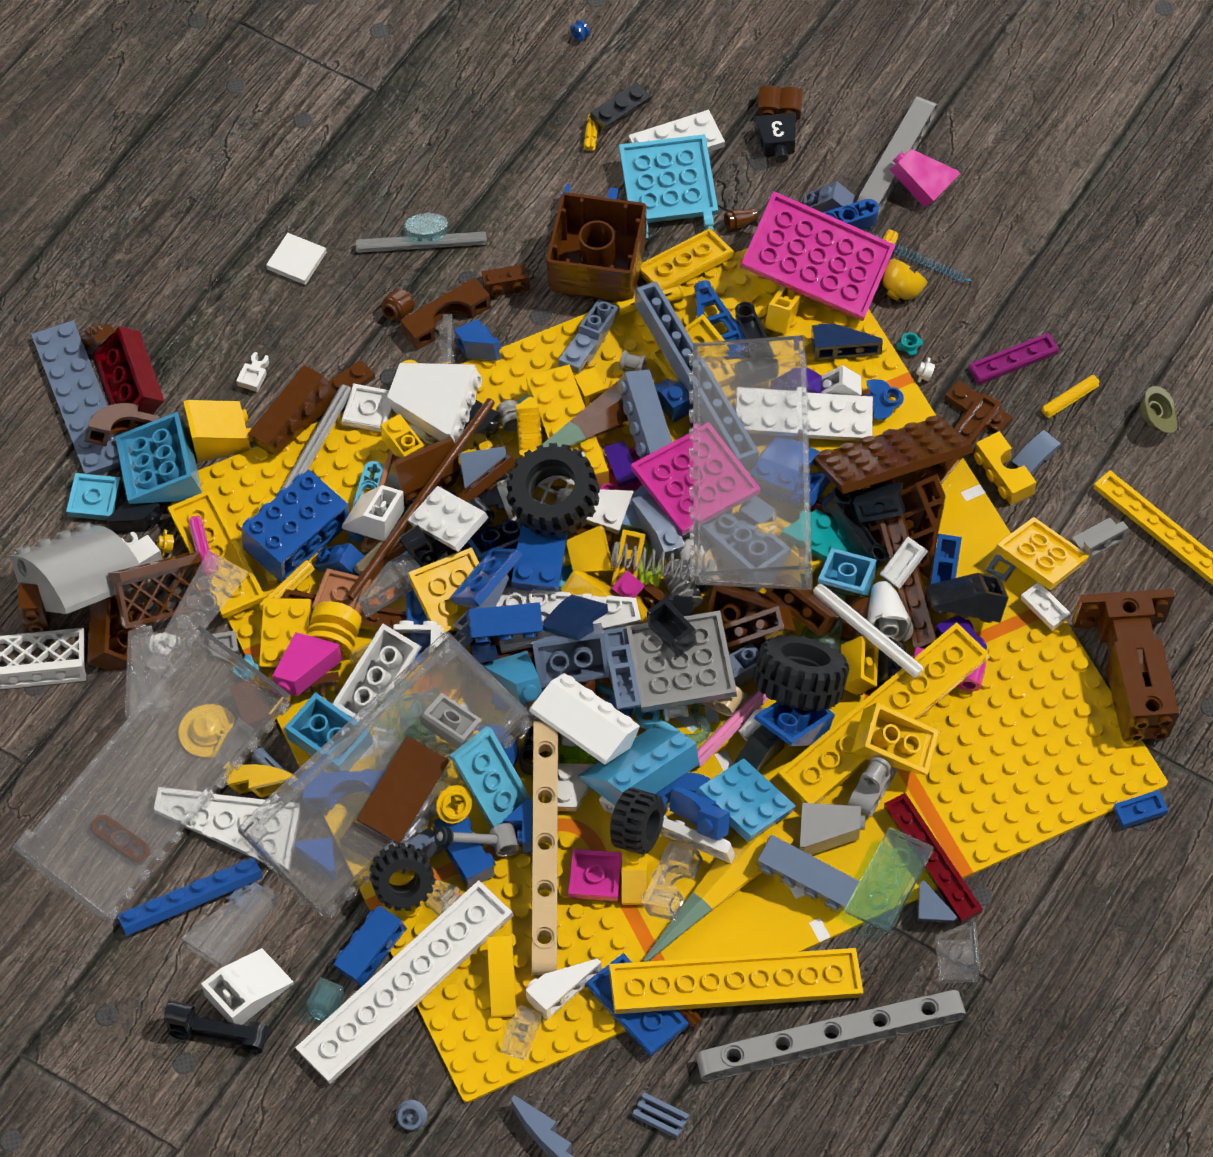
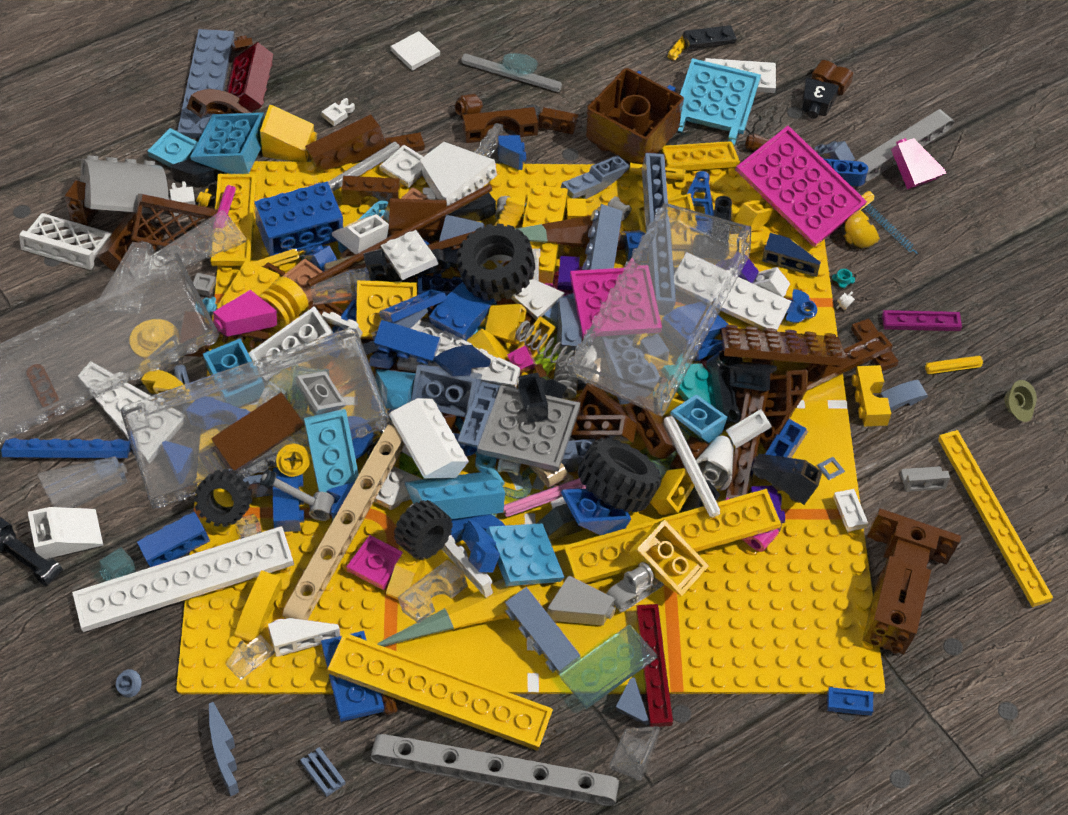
camera: 20 degrees right, 5 degrees down
(337, 458) = (358, 187): none -> reddish brown arch
(400, 437) = (411, 185): yellow slope -> none
(1041, 553) = (868, 469): yellow plate -> none

